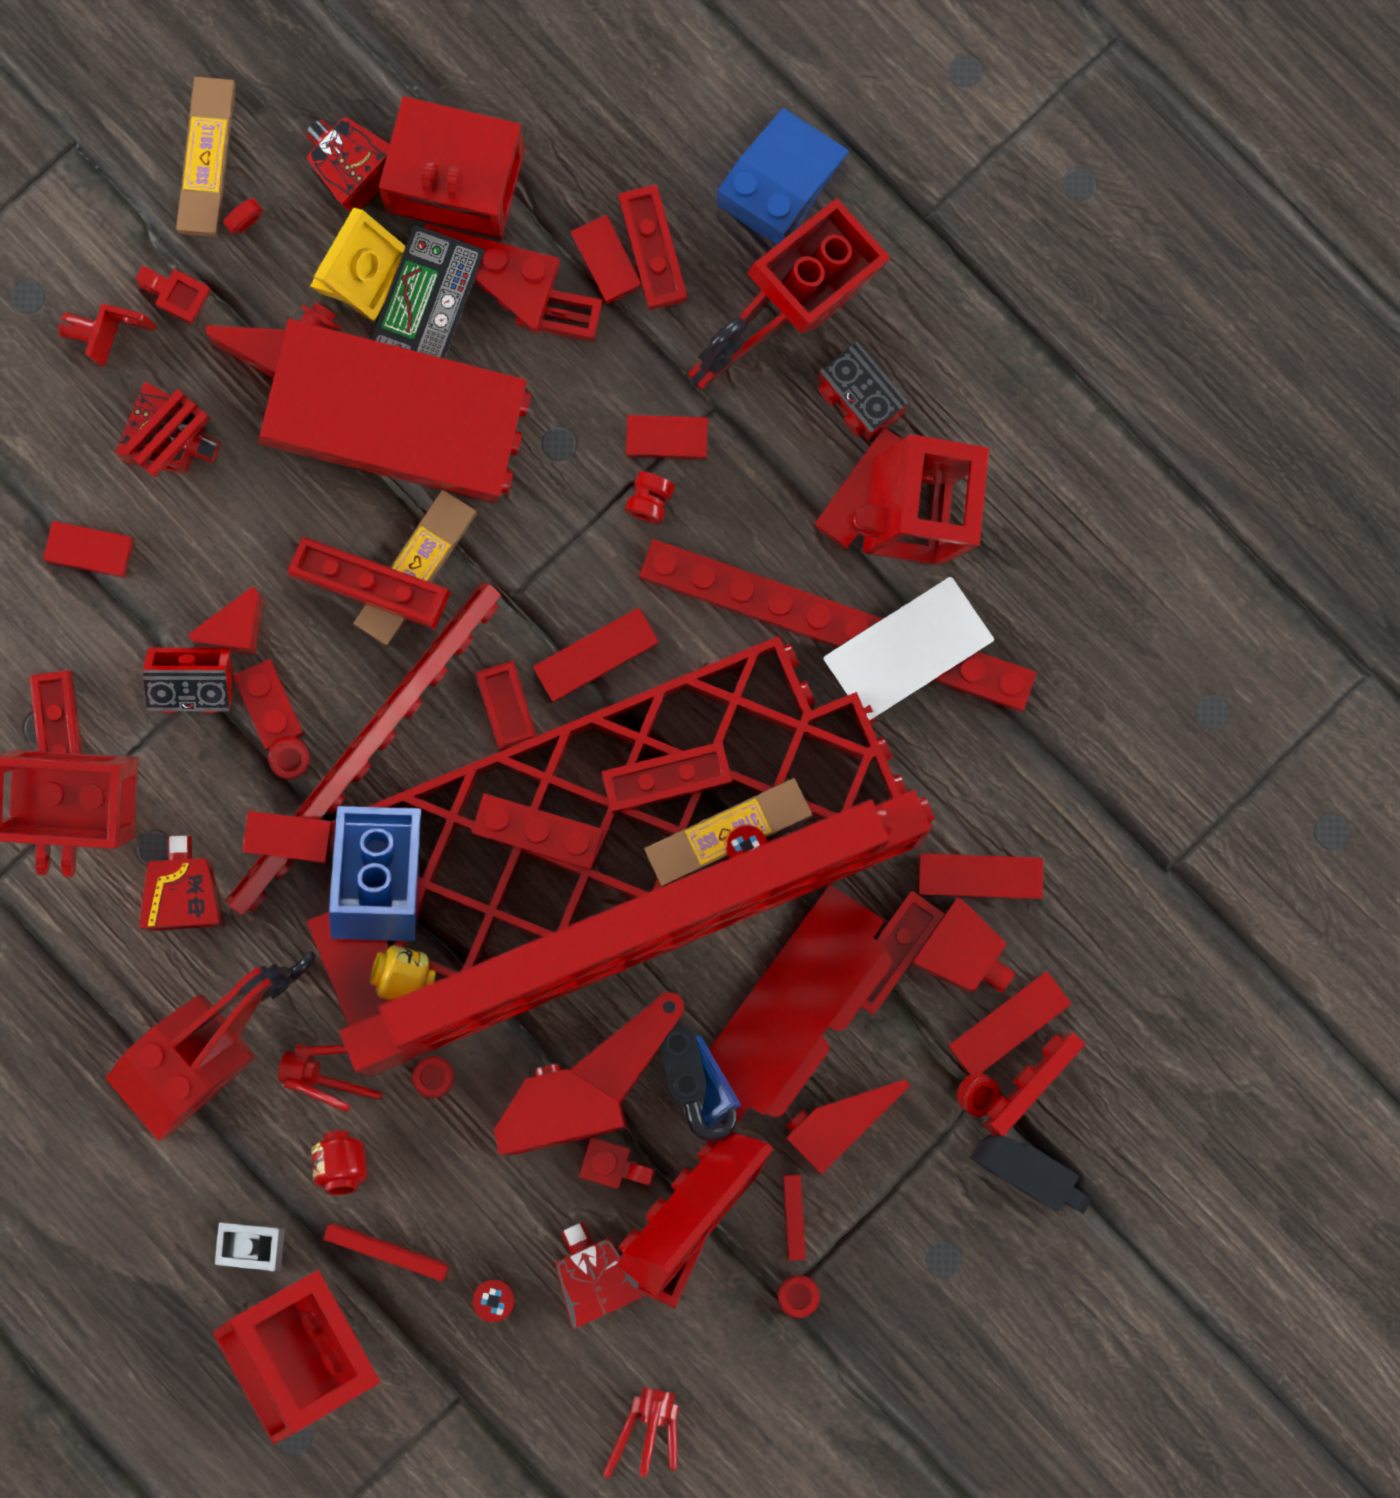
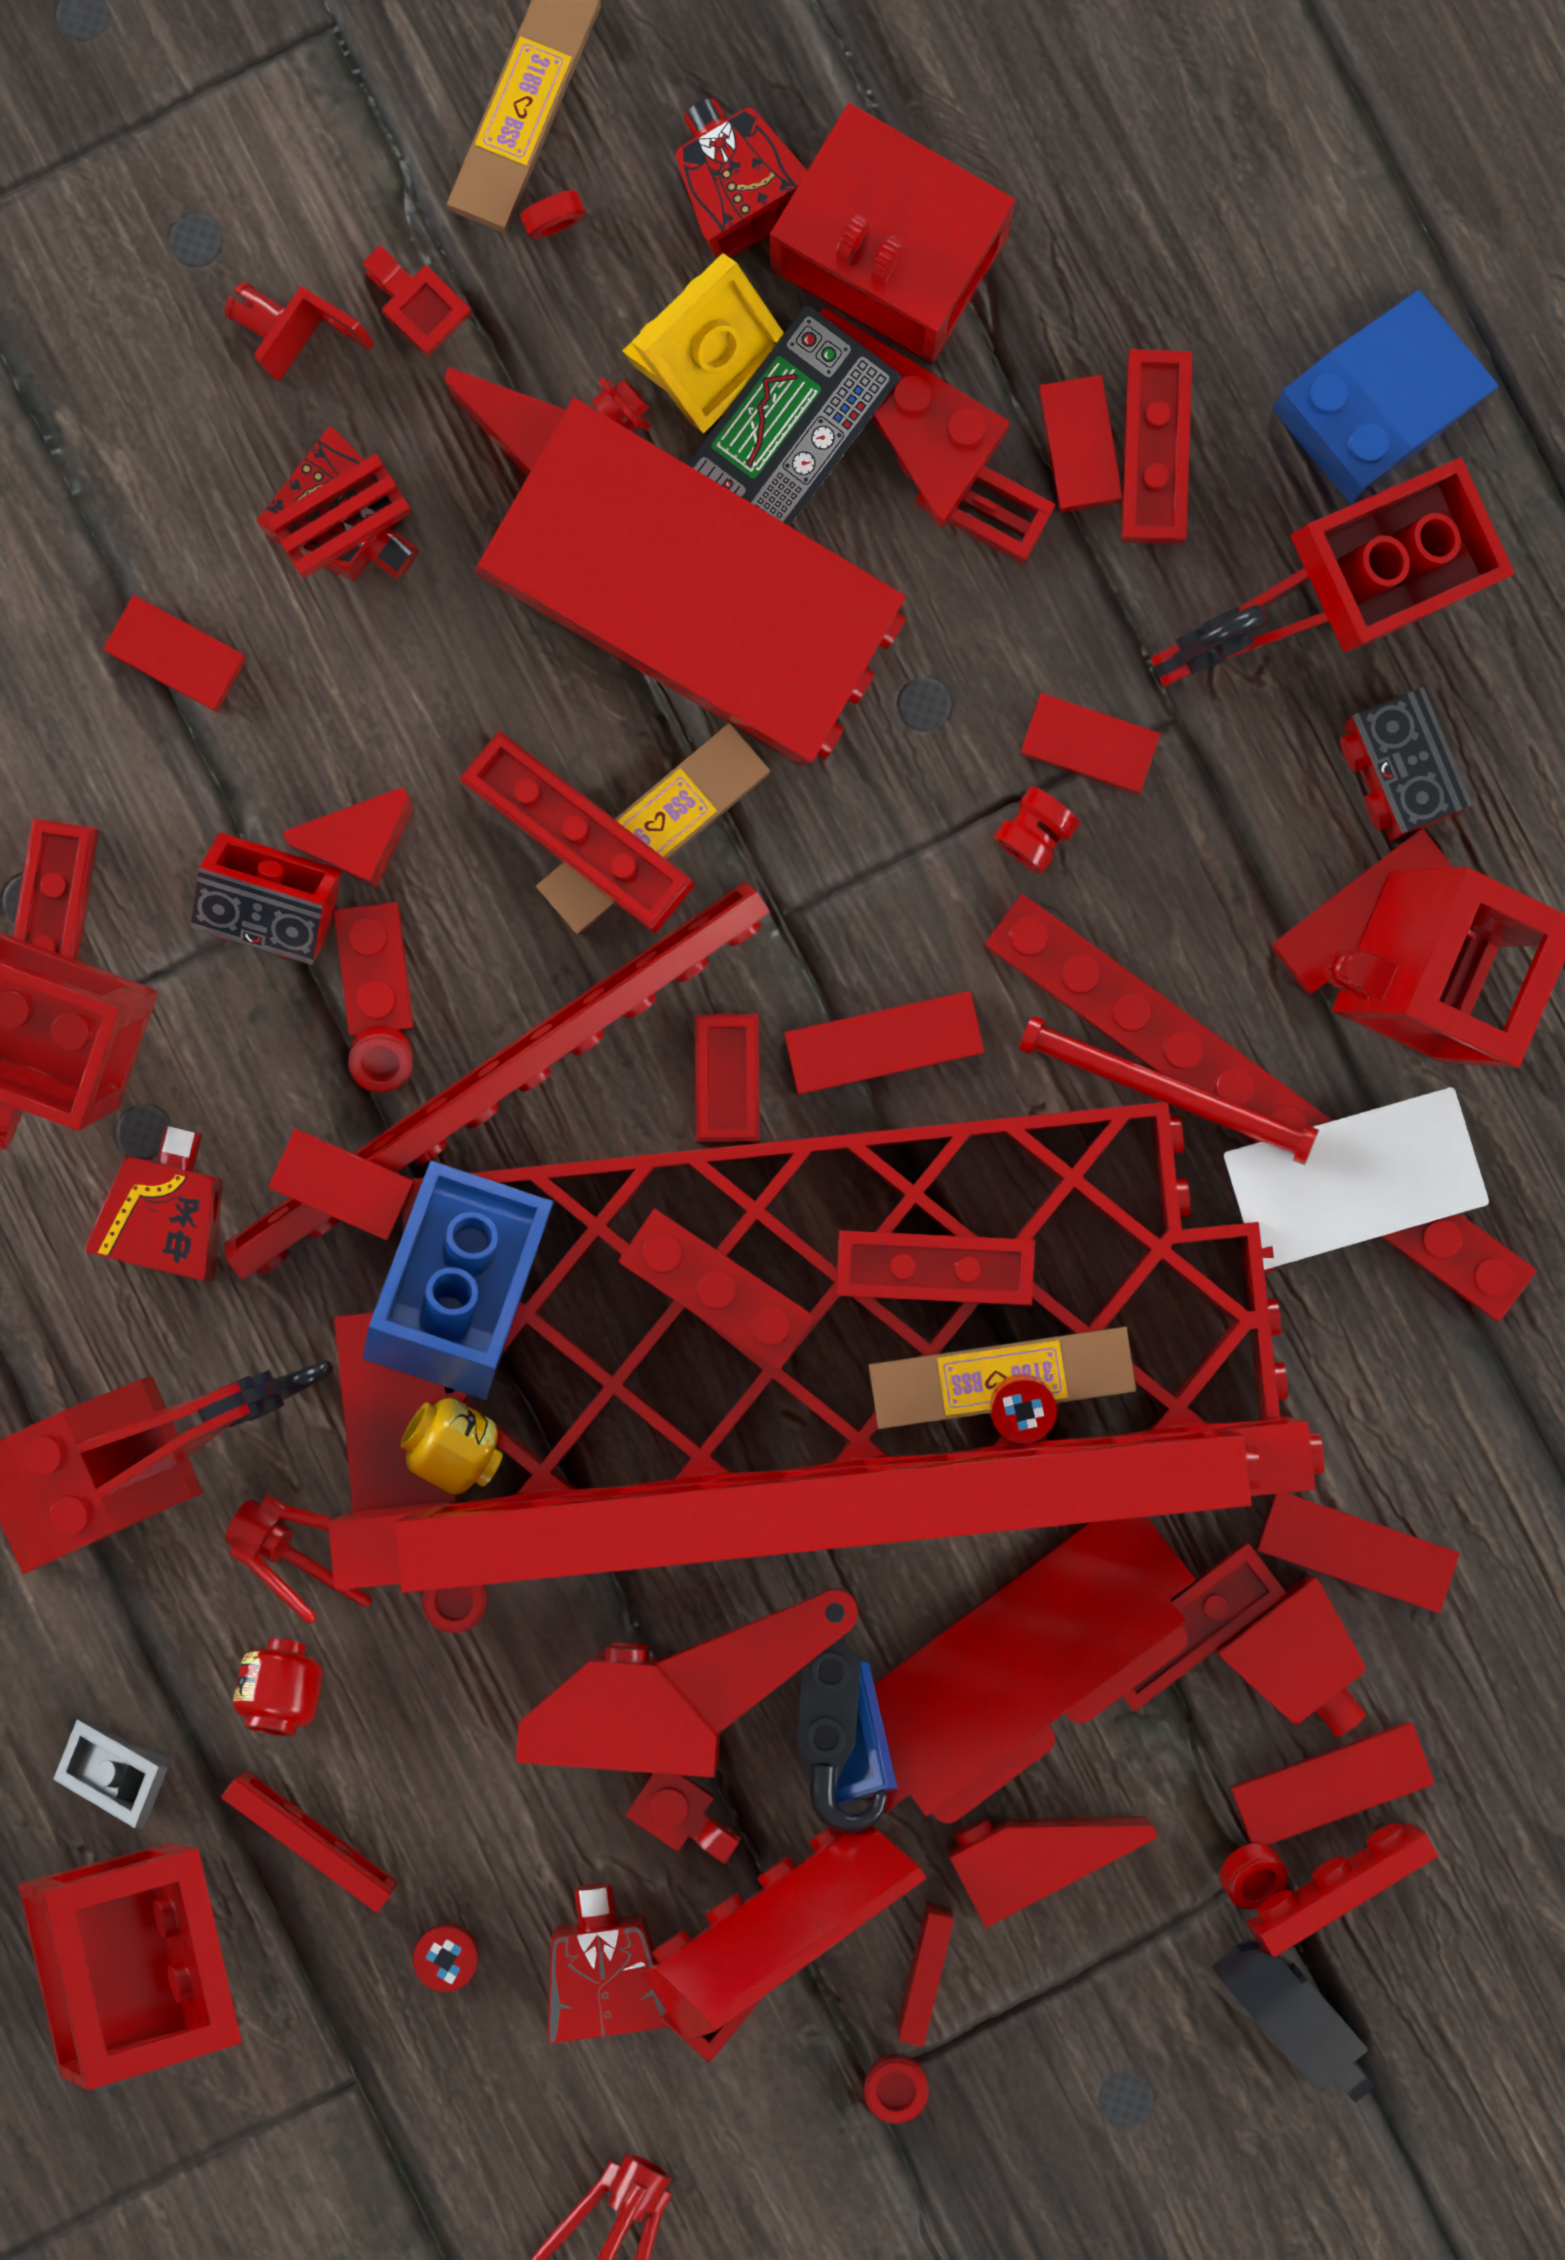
camera: 20 degrees right, 5 degrees up
(772, 629) = (1168, 1090): none -> red bar

